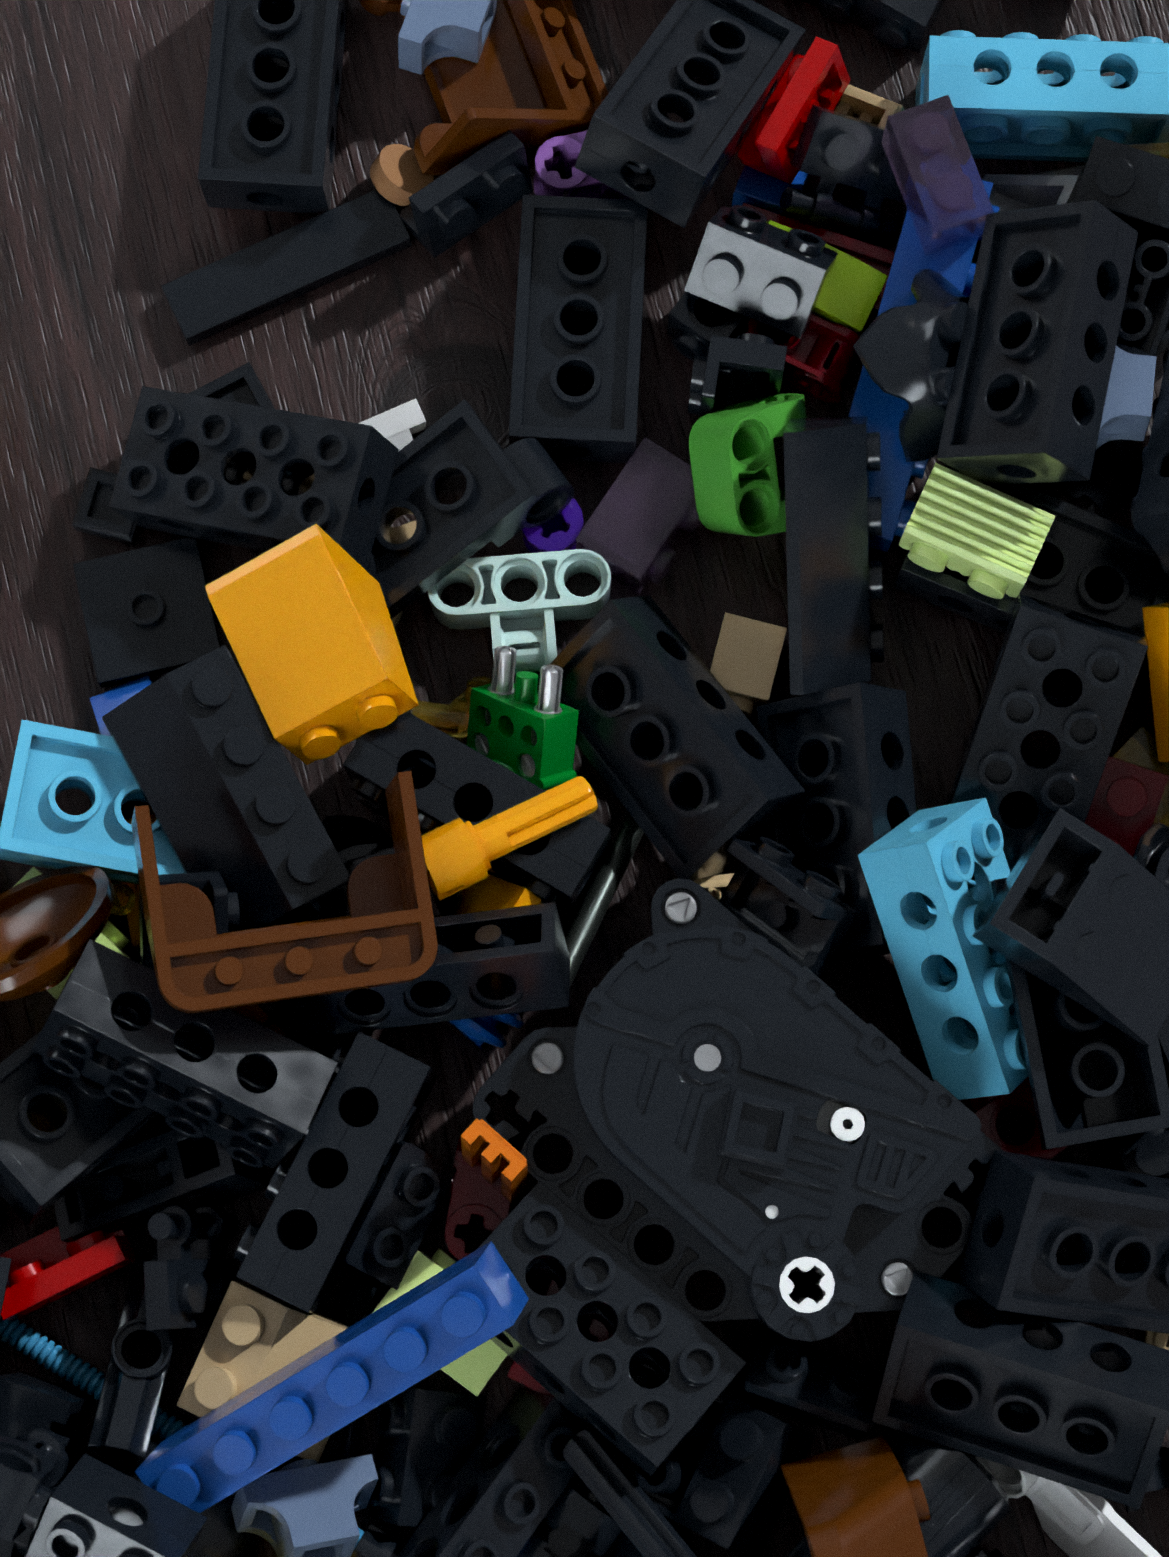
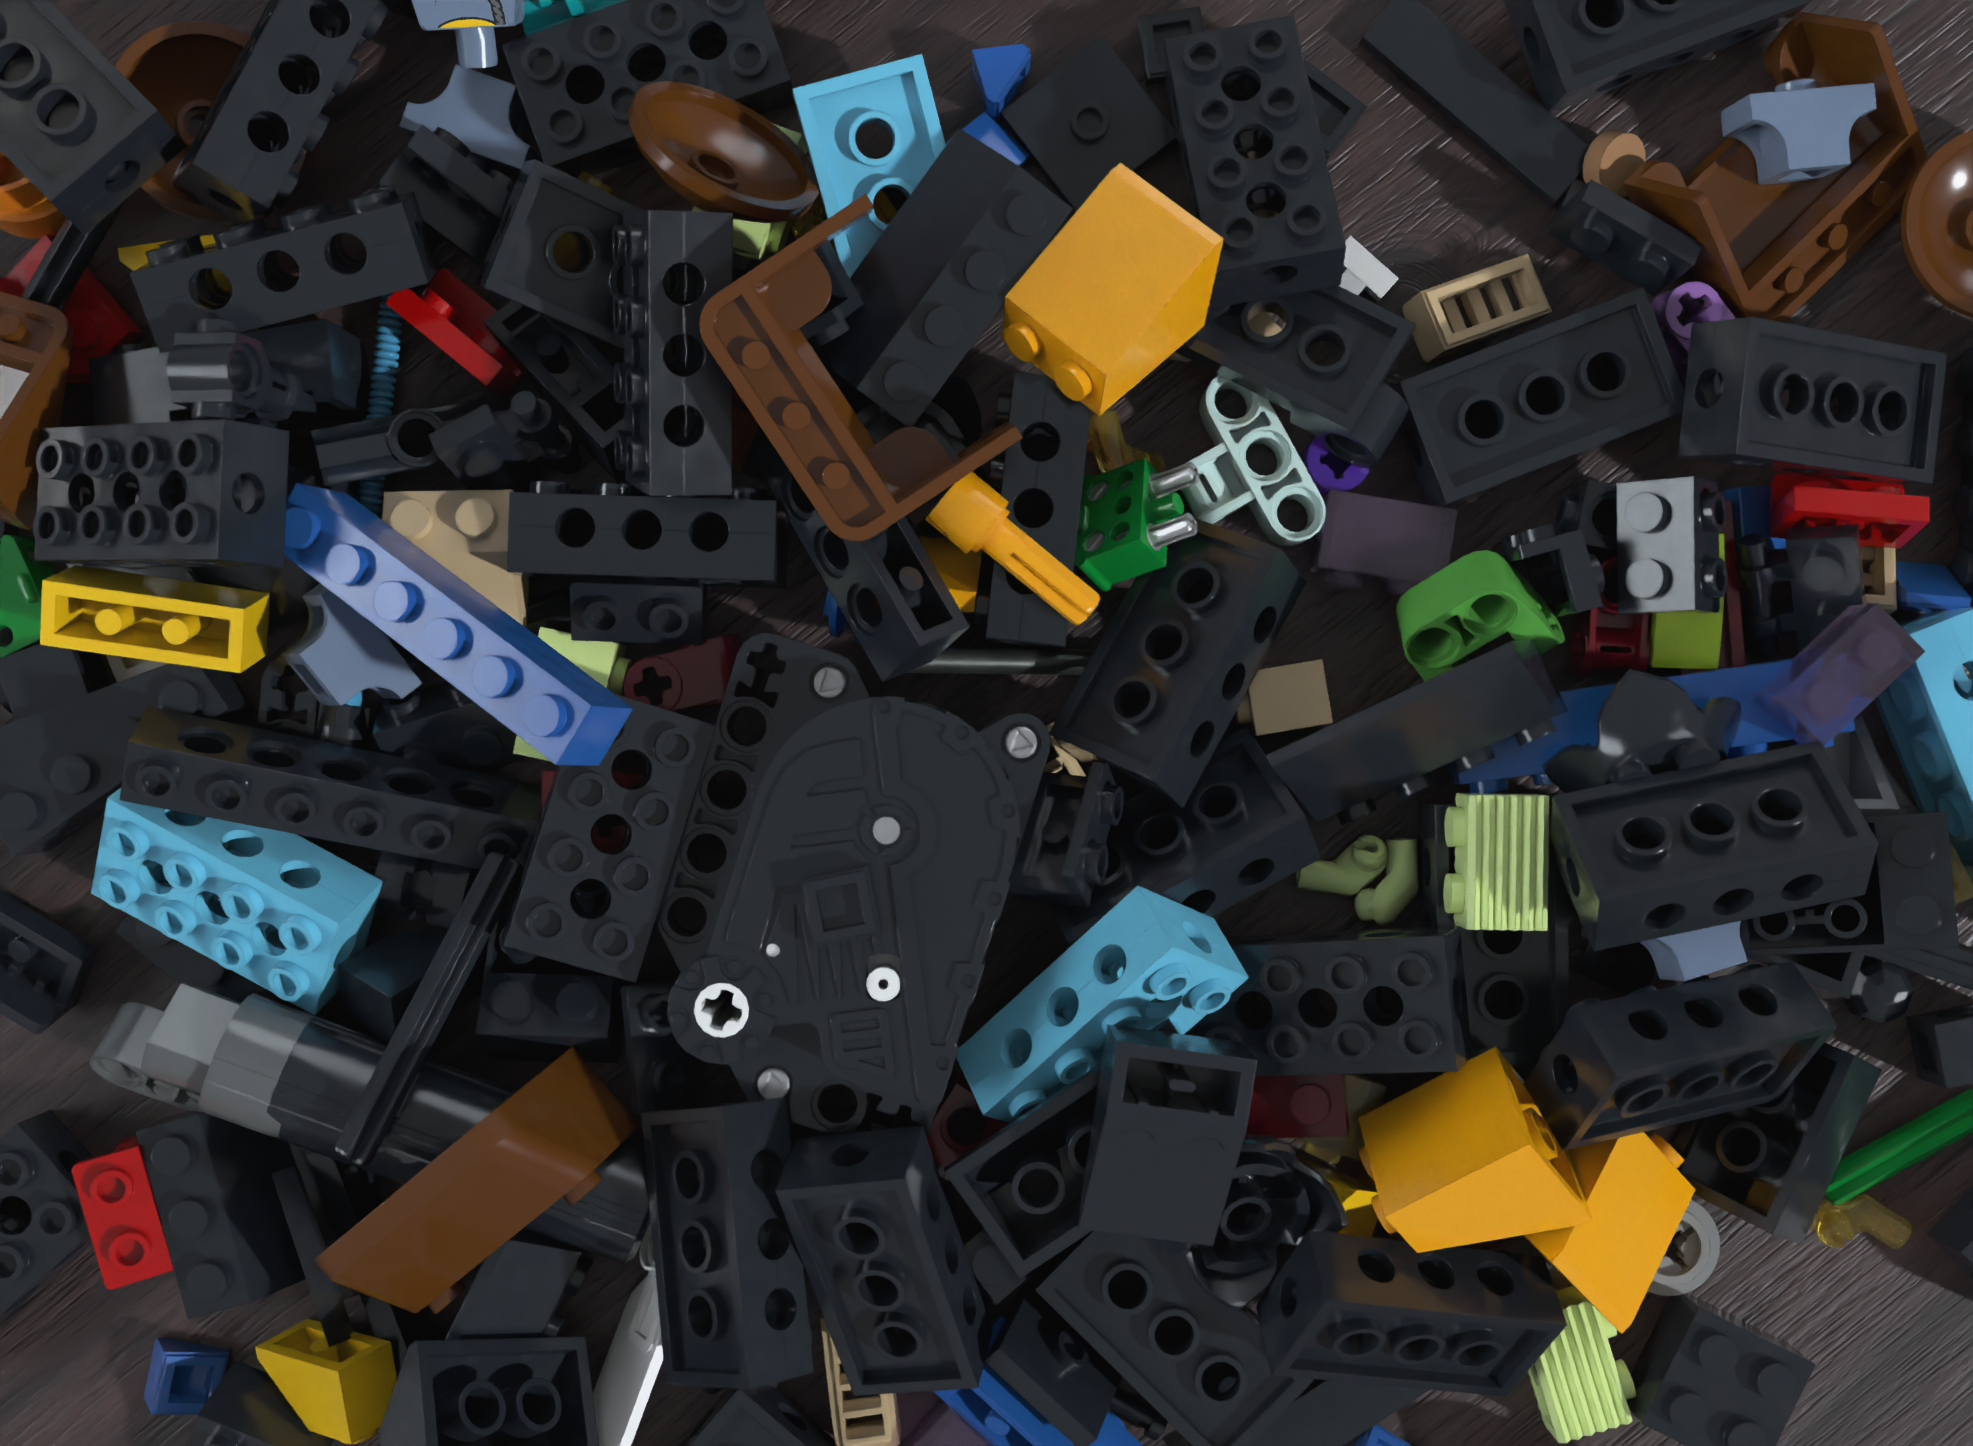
camera: 65 degrees right, 10 degrees up
(64, 670) = (1000, 75): none -> blue slope
(474, 381) = (1440, 324): none -> tan slope
(496, 1157) = (718, 676): orange tile -> none
(896, 72) = (1928, 588): none -> blue slope
(929, 676) = (1347, 872): none -> yellowish green arm
(963, 640) = (1396, 889): none -> yellowish green arm

